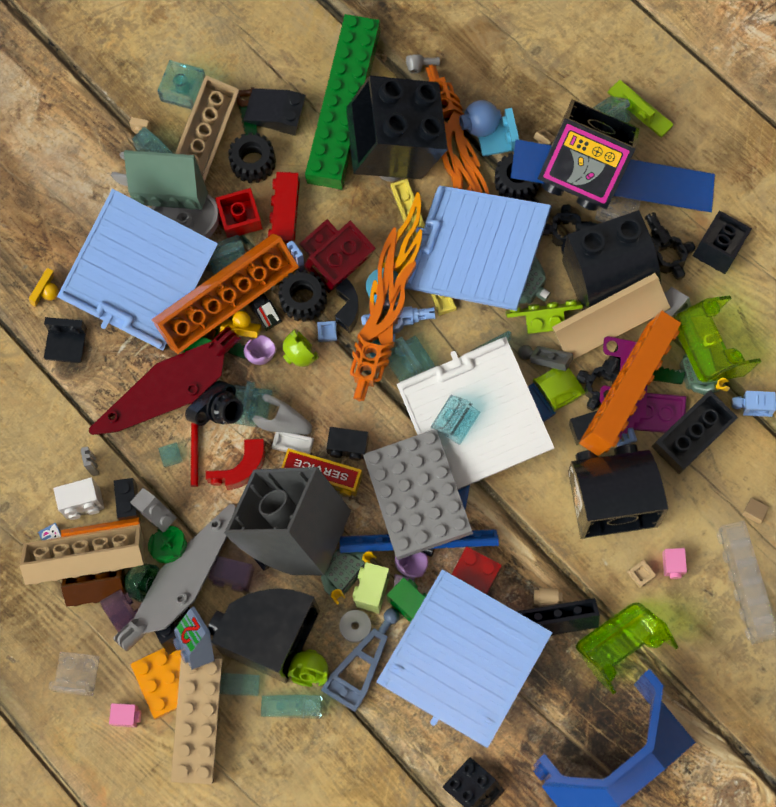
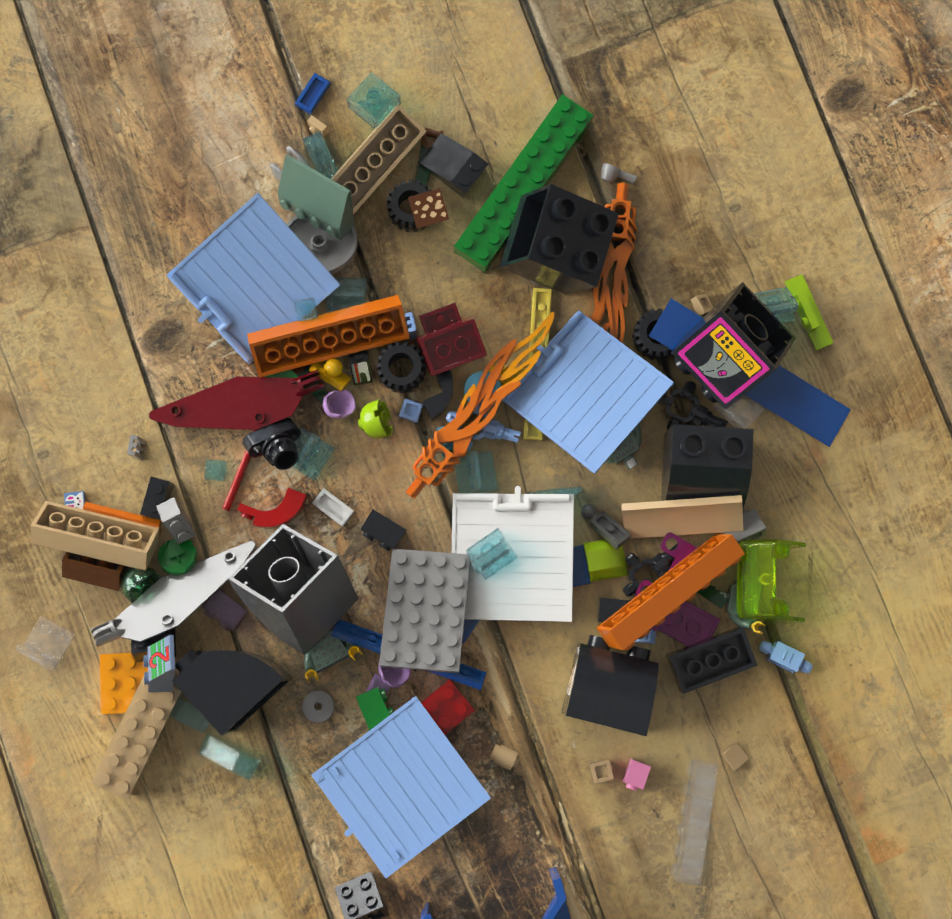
camera: 15 degrees right, 10 degrees up
(44, 288) = (162, 256): yellow tile -> none
(65, 340) = (160, 316): black bracket -> none
(79, 498) = (112, 479): white brick -> none
(119, 609) = (107, 602): clear purple brick -> none
(124, 102) = (312, 93): none -> blue tile
(124, 715) = (75, 700): bright pink brick -> none
(196, 276) = (306, 309): none -> clear light blue plate
(239, 213) = (375, 258): red brick -> none
(268, 151) = (428, 208): none -> reddish brown sticker
(285, 206) = (422, 270): red brick -> none
(286, 420) = (336, 483): light grey animal -> none
(308, 668) = (259, 728): lime cylinder -> none
(341, 477) = (348, 548): brick -> none
(345, 692) = (281, 762): sand blue plate -> none
(372, 587) = (346, 680): yellowish green brick -> none
(480, 118) = (647, 259): medium blue brick -> none
(503, 138) = (658, 281): medium azure bracket -> none
(544, 317) = (623, 485): lime bracket -> none
(566, 616) = (509, 782): black brick -> none
(620, 638) = (553, 822): clear neon green windscreen -> none
(663, 240) = (769, 456): black piece -> none
(722, 242) = (825, 482): black slope -> none

